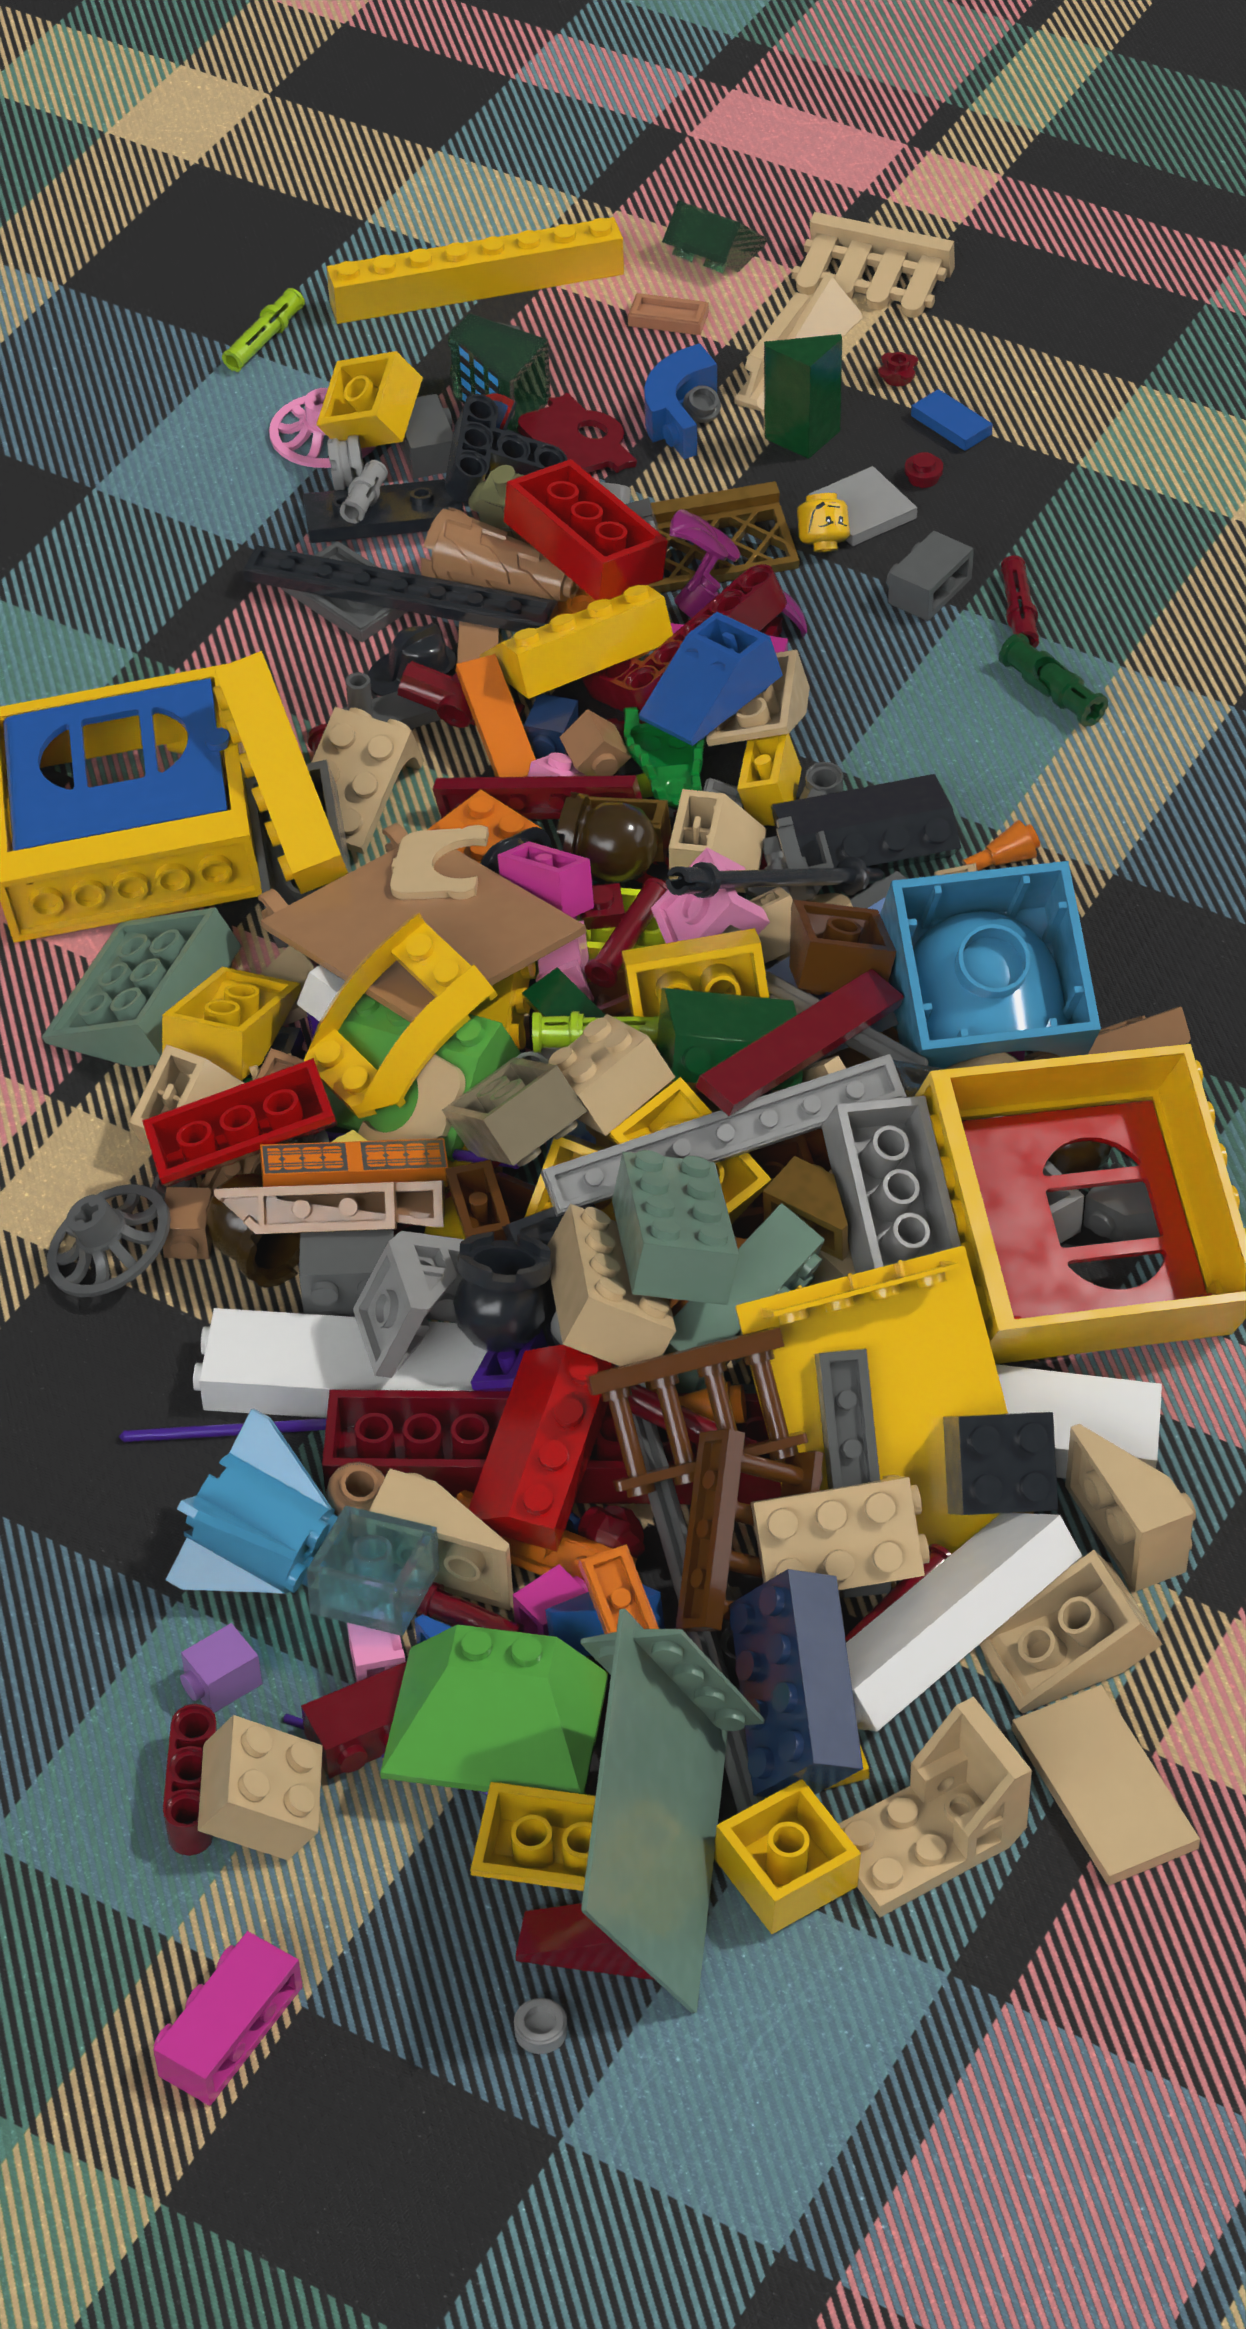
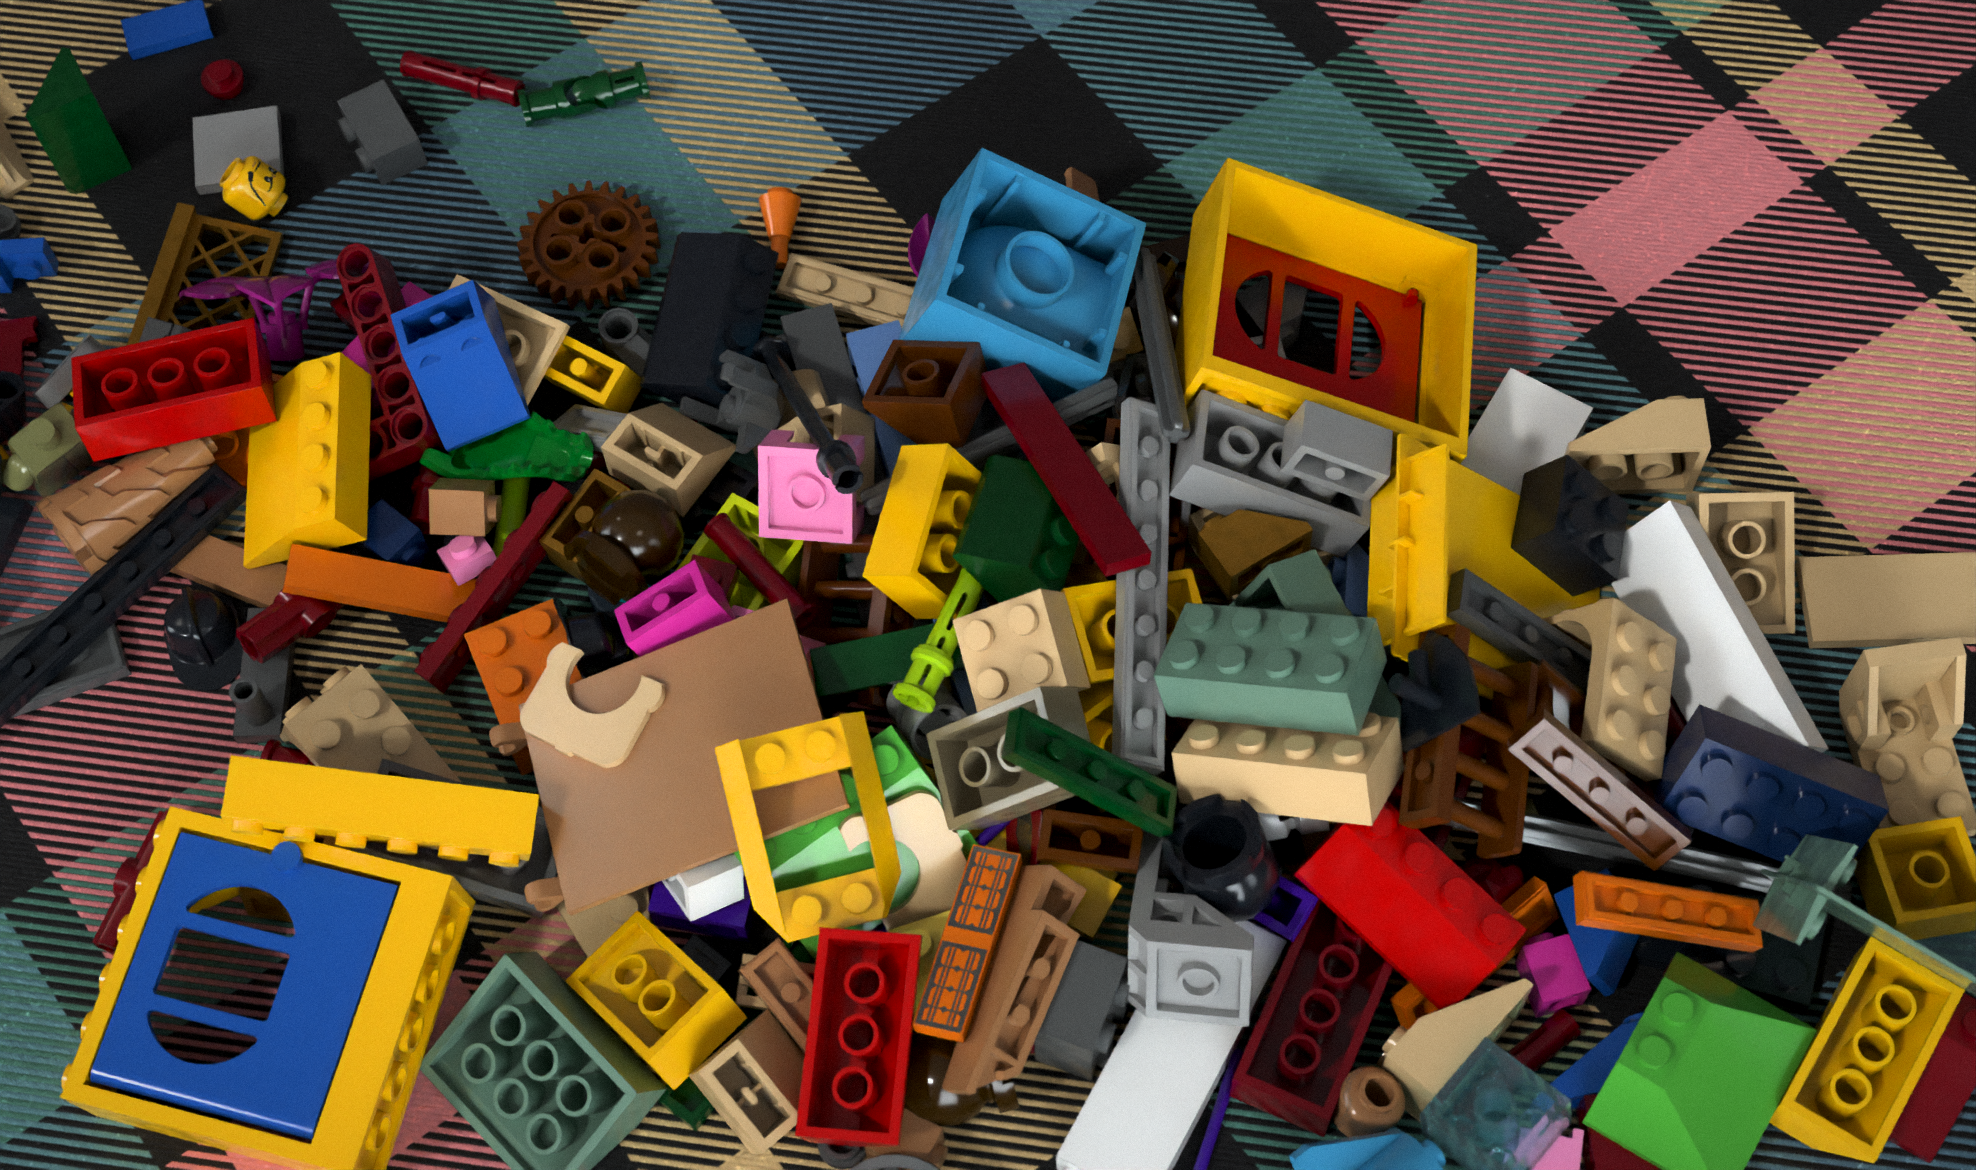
camera: 65 degrees left, 15 degrees up
(506, 1137) = (1089, 772): none -> dark green tile
(699, 1321) = (1437, 691): none -> black shield
(897, 368) = (65, 36): dark red plate -> none
(909, 1080) = (1159, 348): none -> dark grey axle
(927, 1209) = (1336, 450): none -> light grey brick
(929, 730) = (588, 245): none -> reddish brown gear

